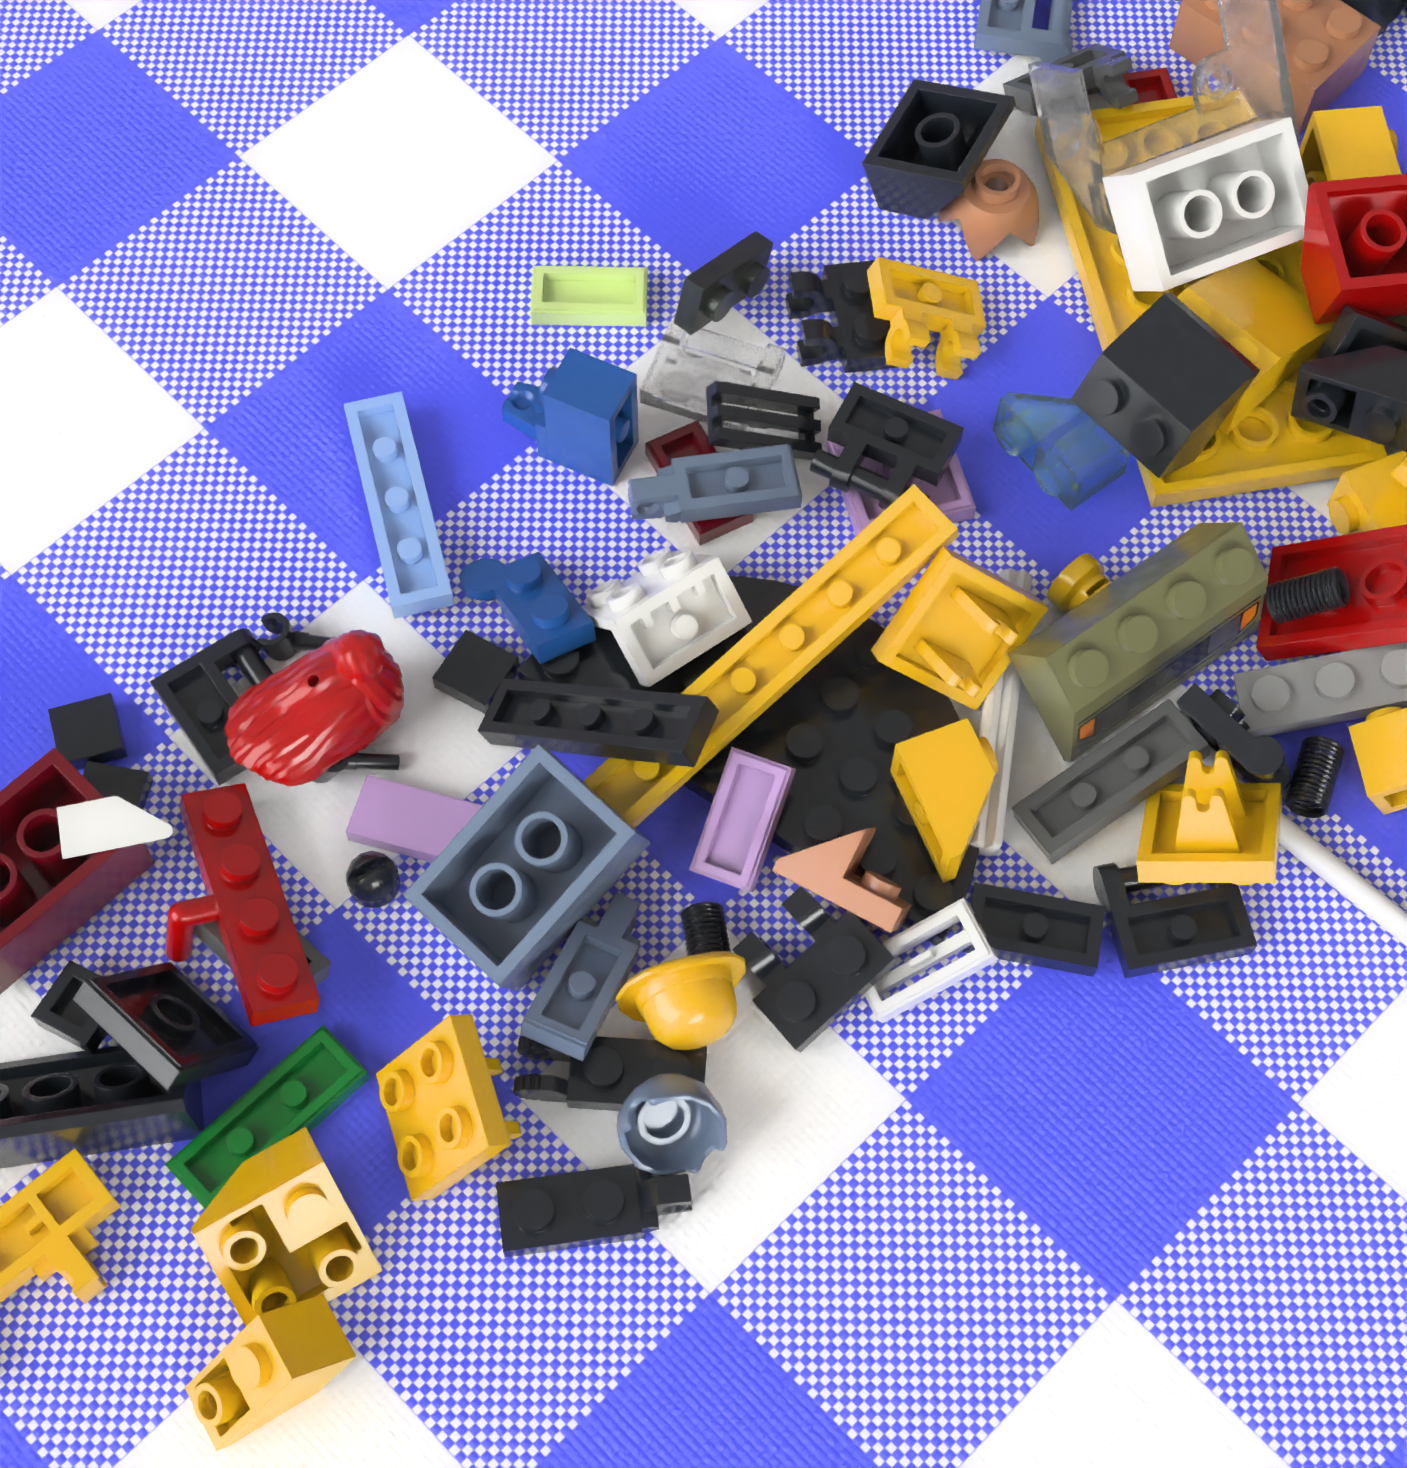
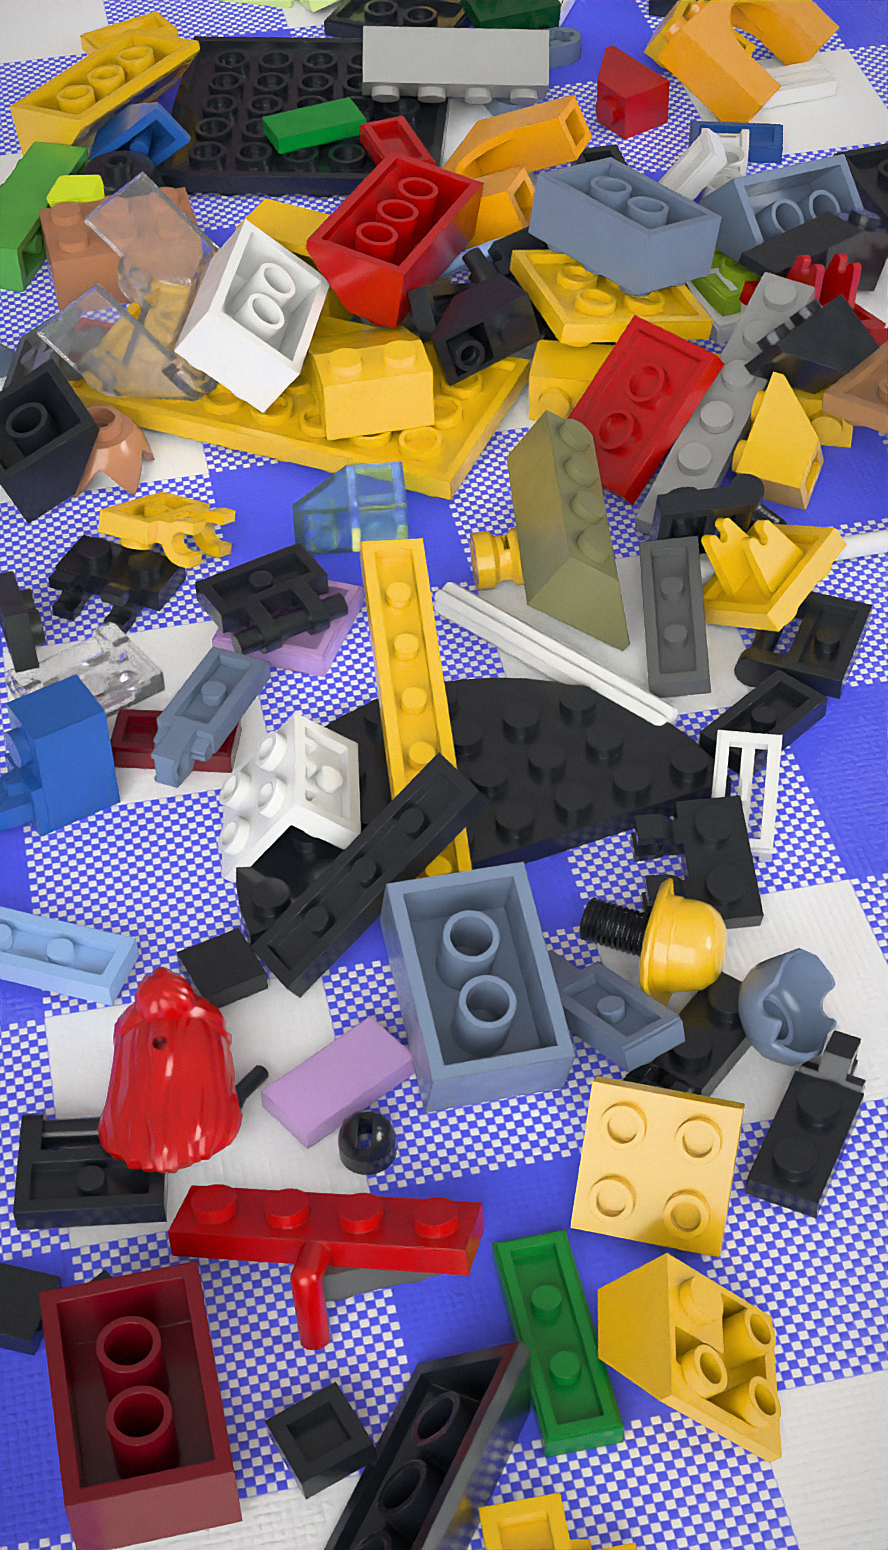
camera: 55 degrees left, 20 degrees down
(106, 826) = (168, 1283): white sticker -> none
(166, 1024) = (412, 1346): black tile -> none
(269, 1369) = (827, 1446): yellow slope -> none
(289, 640) = (52, 1086): black hand -> none
(533, 603) = (197, 889): blue hinge -> none
(742, 819) = (525, 831): lavender tile -> none
(767, 399) = (161, 652): black tile -> none
(830, 873) = (632, 791): slope -> none
(945, 788) = (622, 697): yellow slope -> none
(958, 628) = (486, 615): yellow plate -> none
(1165, 386) = (385, 404): black slope -> none
(1300, 599) = (614, 436): black piece -> none

